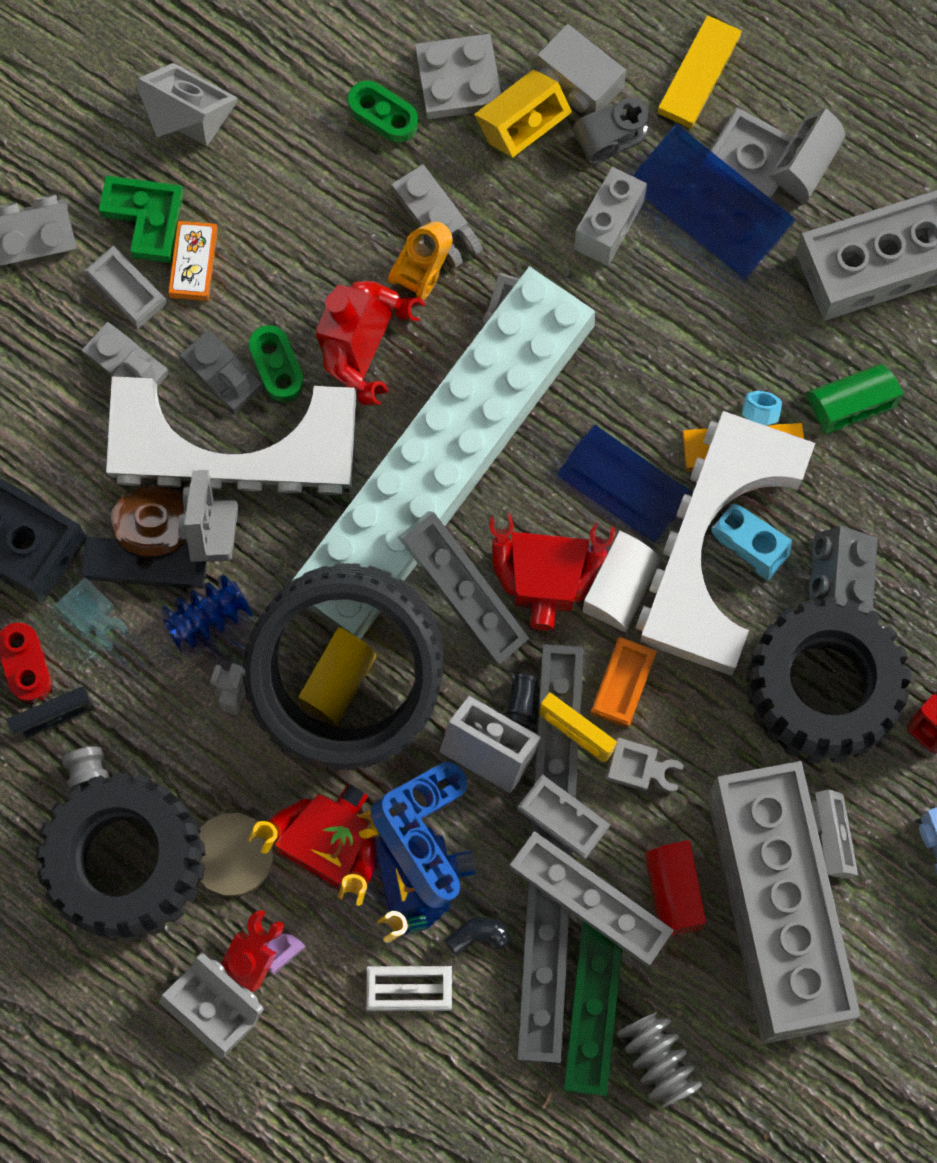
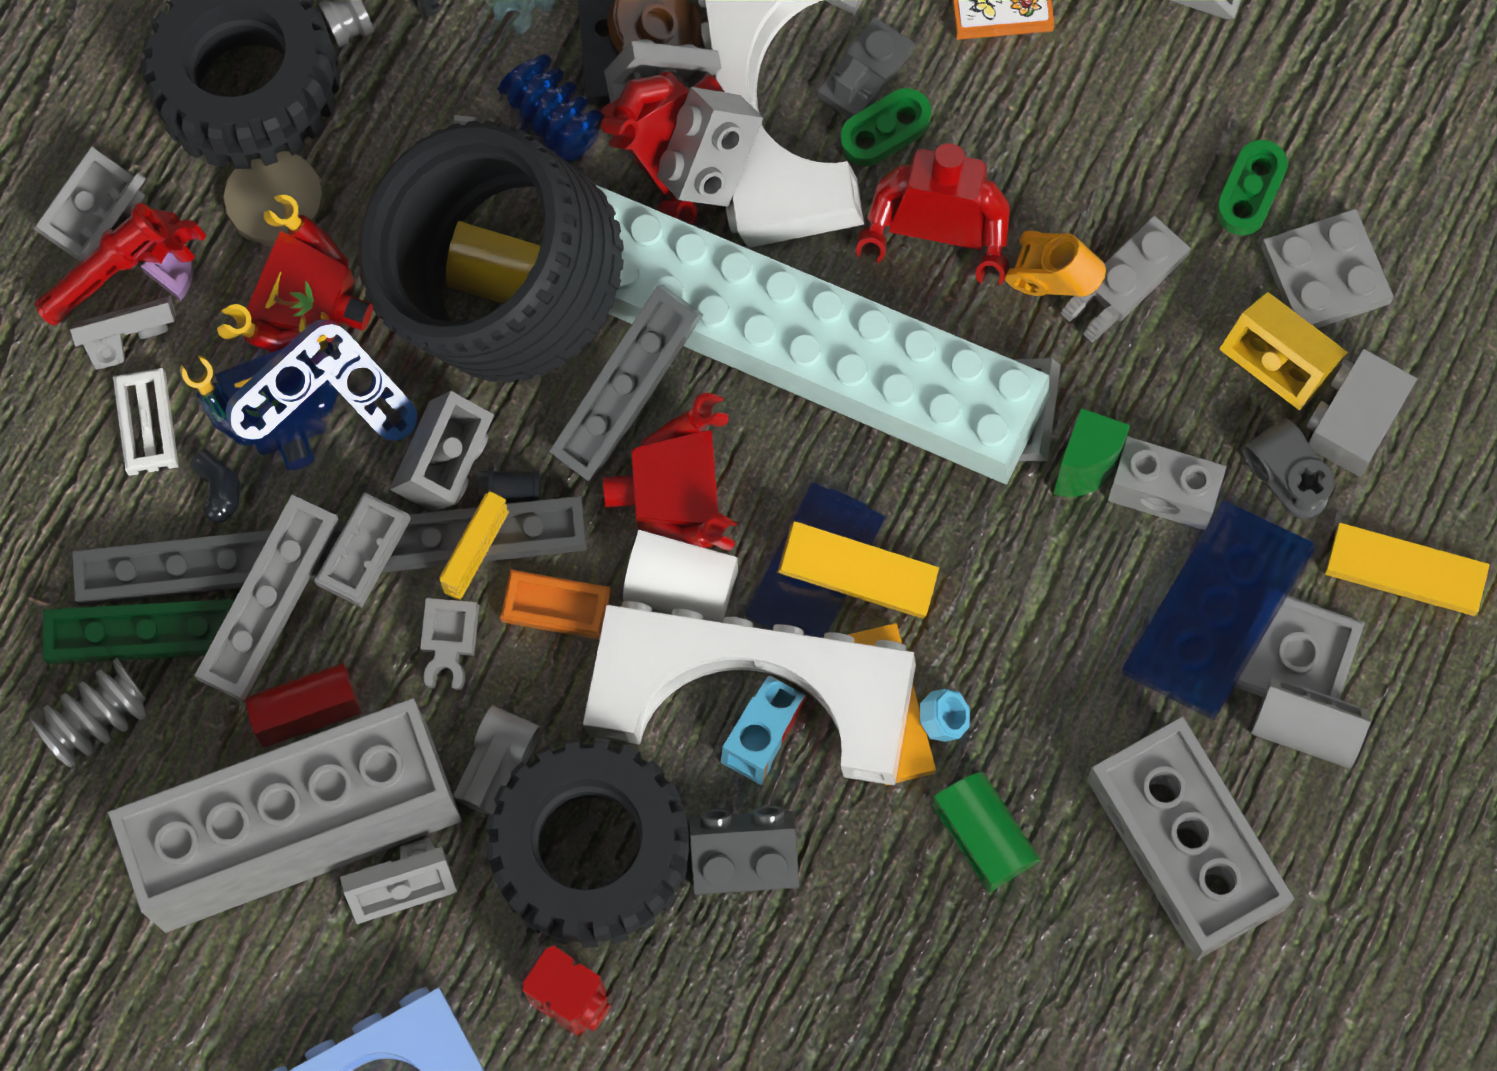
camera: 85 degrees right, 0 degrees up
(254, 523) = (644, 125): none -> red torso
(266, 983) = (116, 251): none -> red pin
(280, 486) = (709, 147): none -> light grey brick
(324, 1007) = (103, 333): none -> light grey hinge
(582, 261) = (1090, 454): none -> green brick
(638, 448) = (858, 570): none -> yellow tile
(735, 738) = (500, 747): none -> light grey piece

